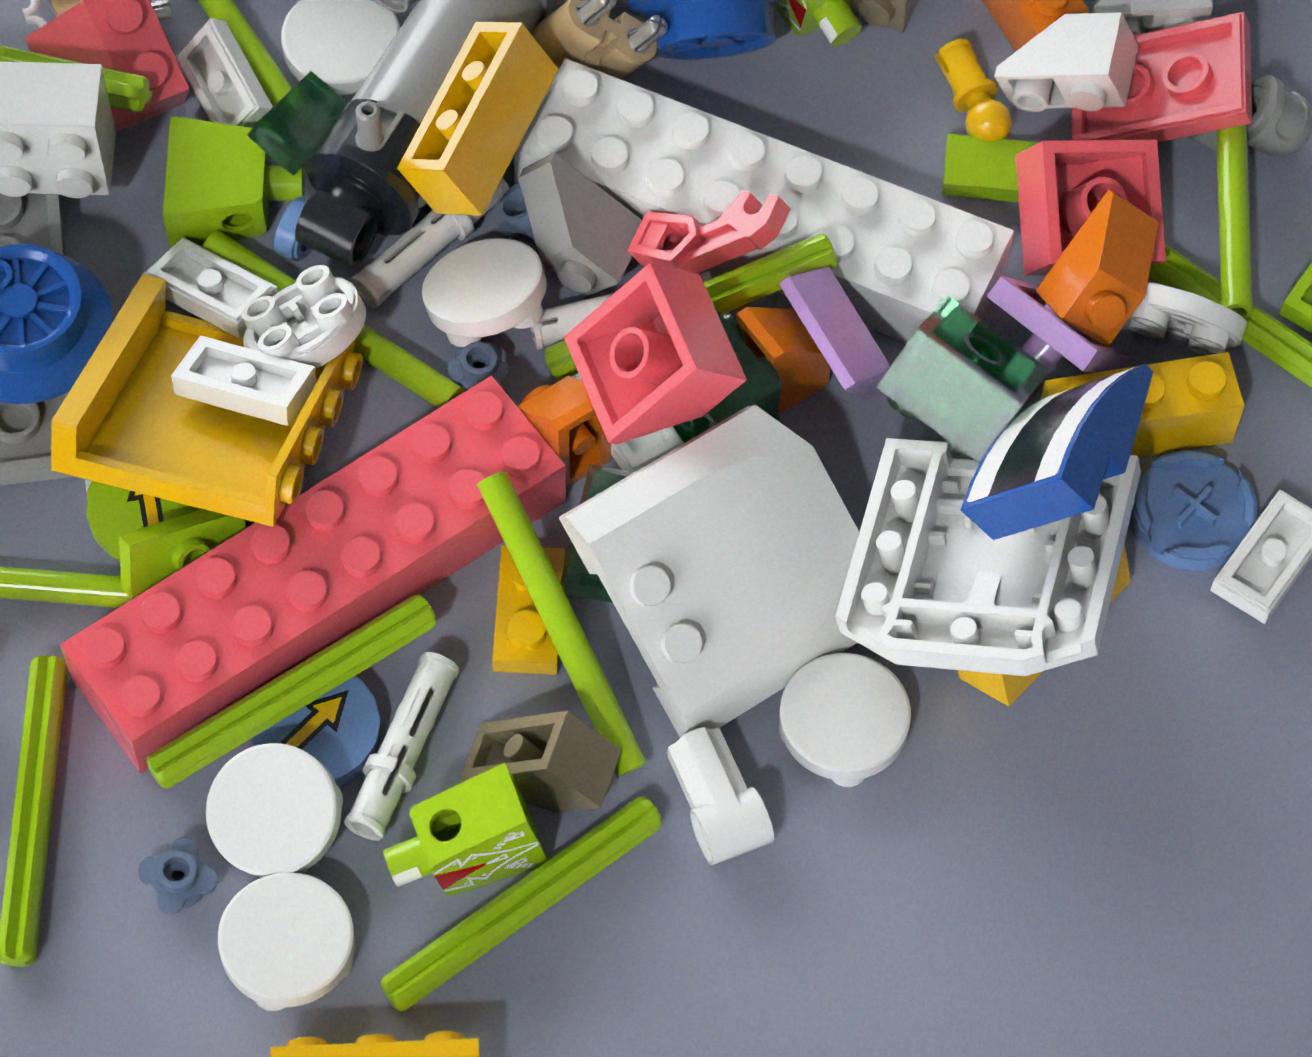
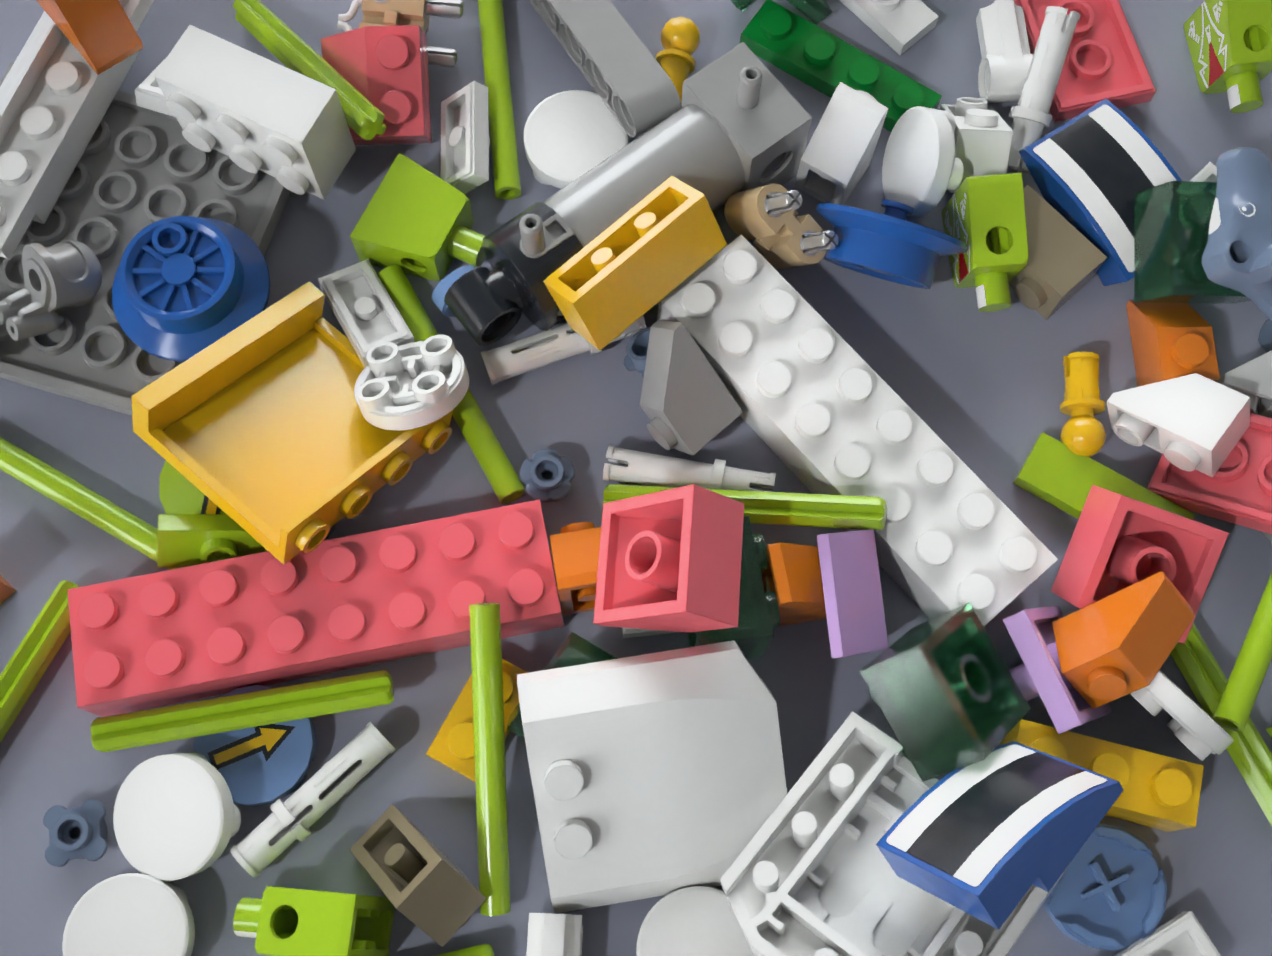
camera: 25 degrees right, 10 degrees up
(244, 380) = (330, 417): white plate -> none
(298, 122) = (498, 198): clear green tile -> none
(485, 290) = (580, 412): white tile -> none
(693, 248) = (766, 455): coral piece -> none

